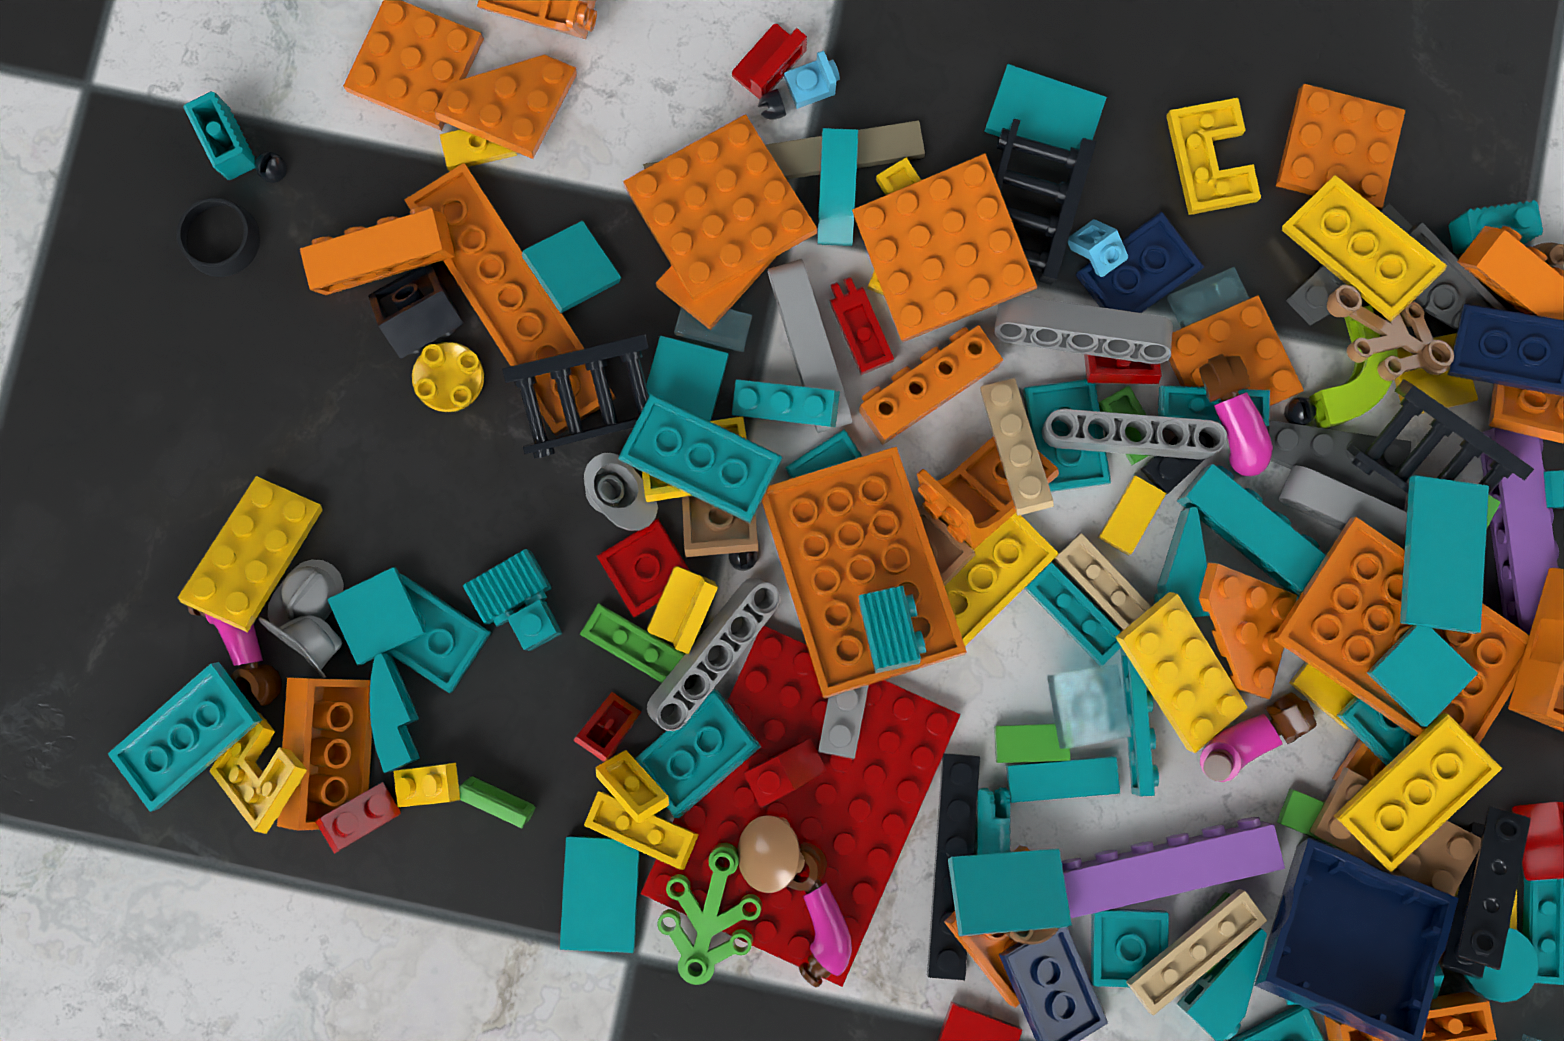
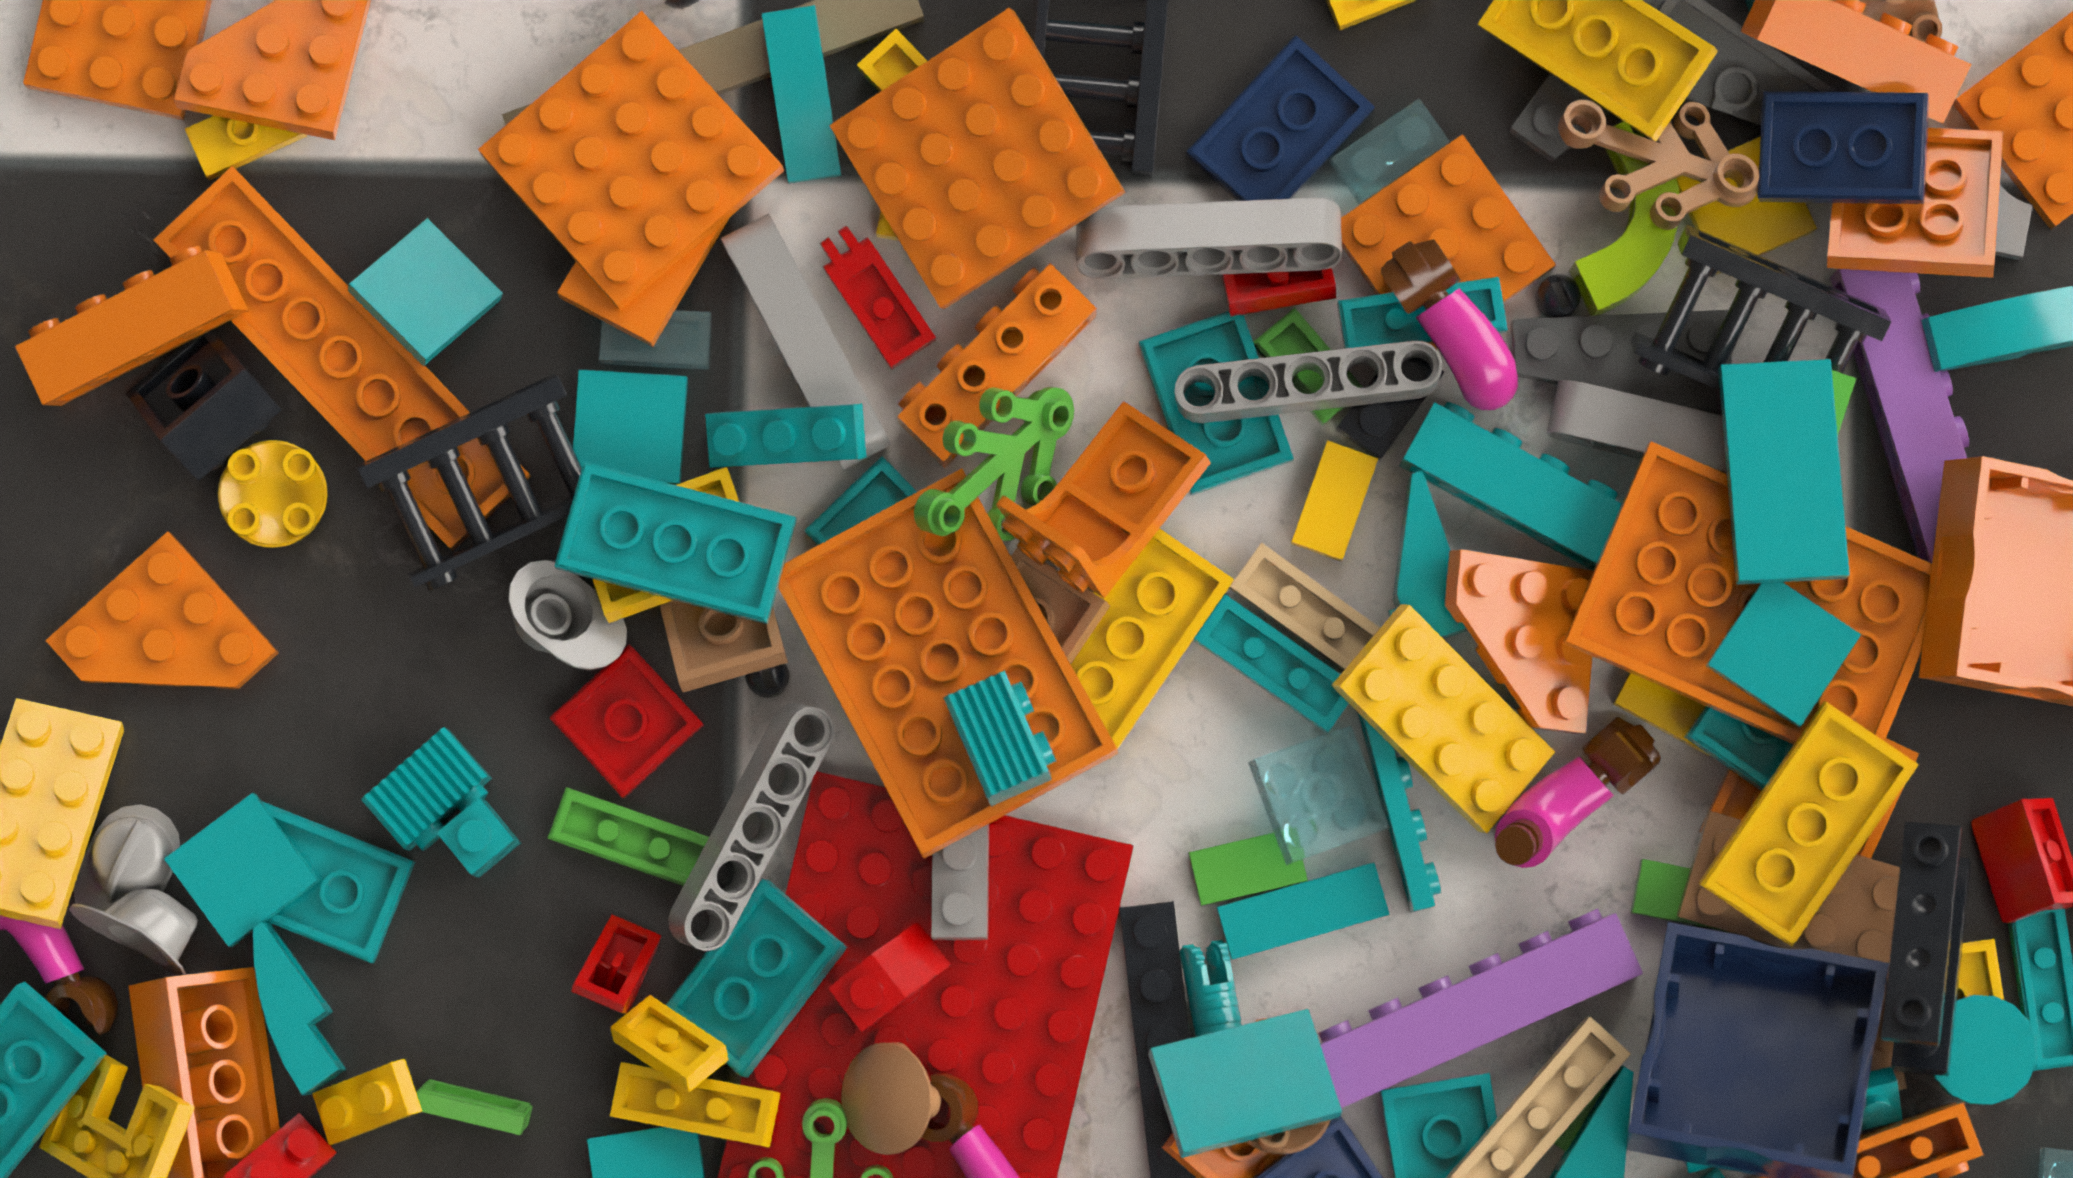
camera: 10 degrees left, 0 degrees up
(360, 449) = (163, 628): none -> orange plate
(682, 608) = (692, 769): yellow panel -> none
(955, 426) = (1046, 417): none -> bright green plant
(1016, 447) = (1139, 433): tan plate -> none
(1100, 245) = (1210, 107): medium azure bracket -> none

